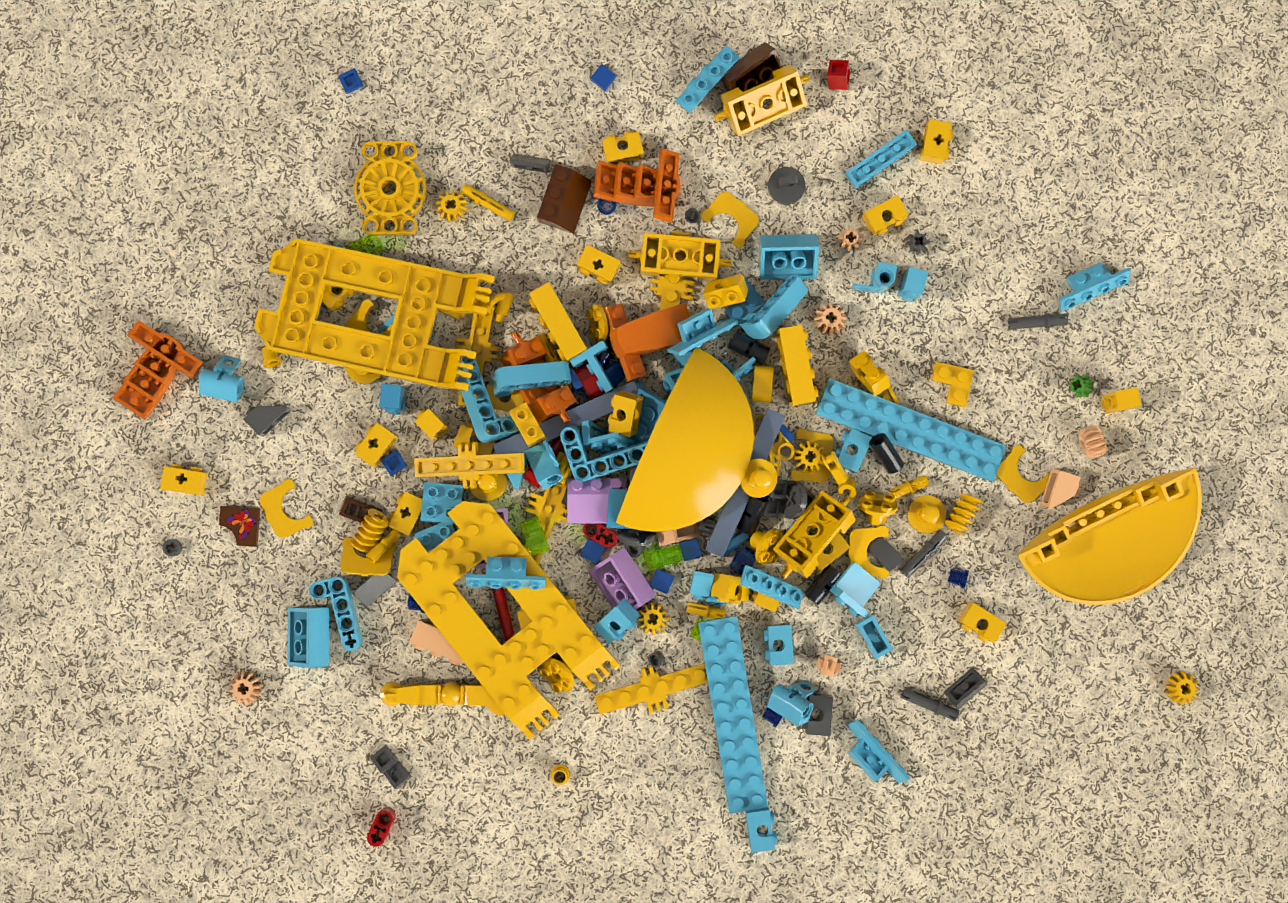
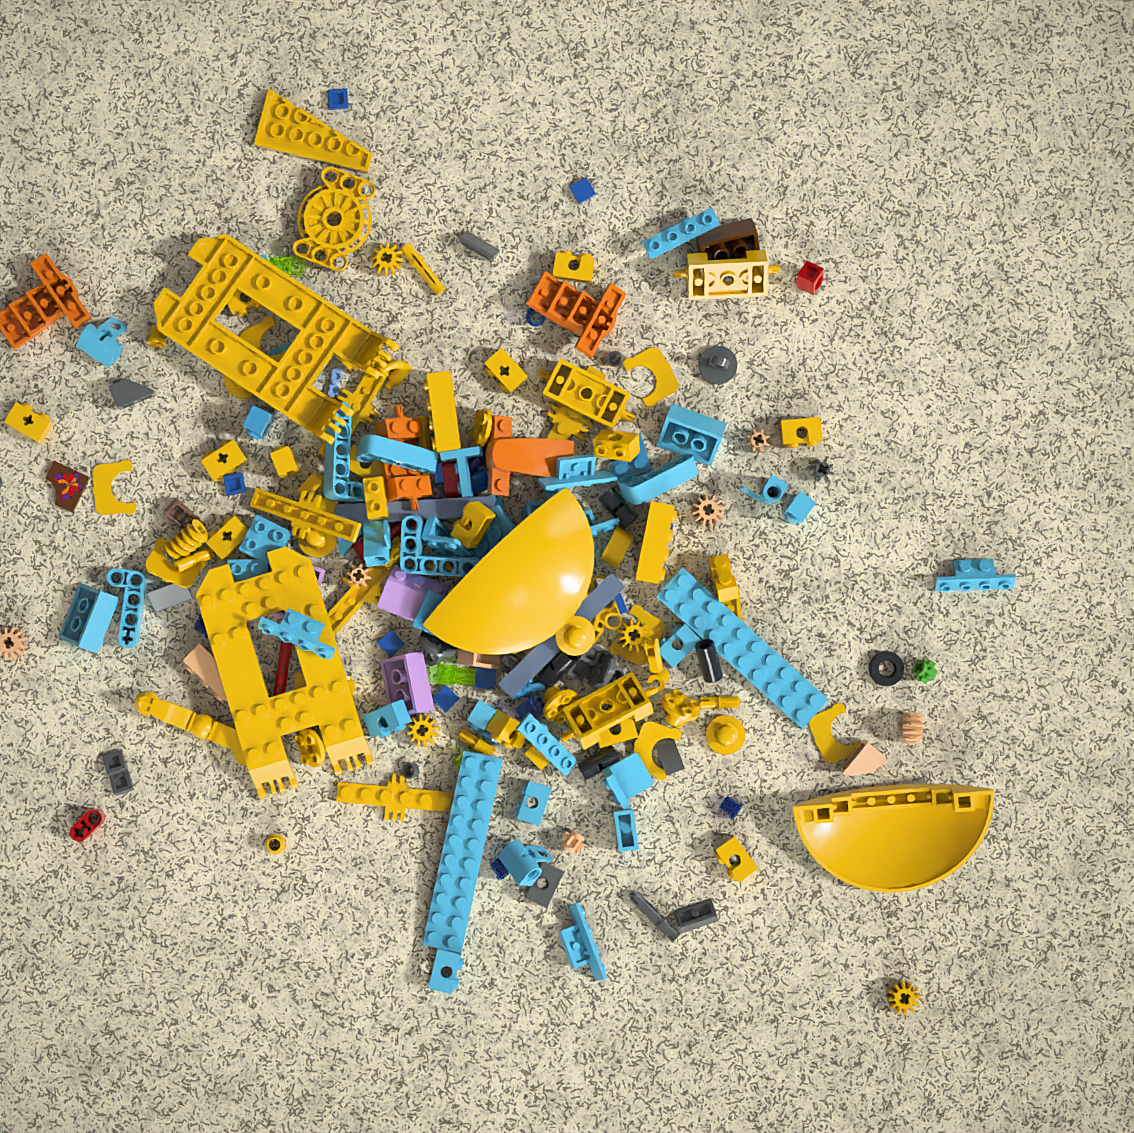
camera: 20 degrees right, 0 degrees up
(329, 124) = (298, 133): none -> yellow wing
(447, 331) = (333, 388): none -> light blue piece
(534, 536) = (341, 607): clear neon green beam -> none
(535, 498) = (356, 571): none -> light nougat gear
(564, 199) = (497, 295): reddish brown slope -> none
(602, 540) = (403, 637): red beam -> none
(881, 159) = (819, 375): medium azure plate -> none
(924, 553) = (712, 769): dark grey pin -> none
(930, 151) = (883, 368): yellow brick -> none
(957, 378) = (808, 618): yellow plate -> none
(963, 513) = (760, 747): yellow piece -> none
(1038, 321) = (915, 594): dark grey pin -> none
(1054, 389) = (886, 680): none -> black tyre
(1121, 400) = (954, 699): yellow brick -> none

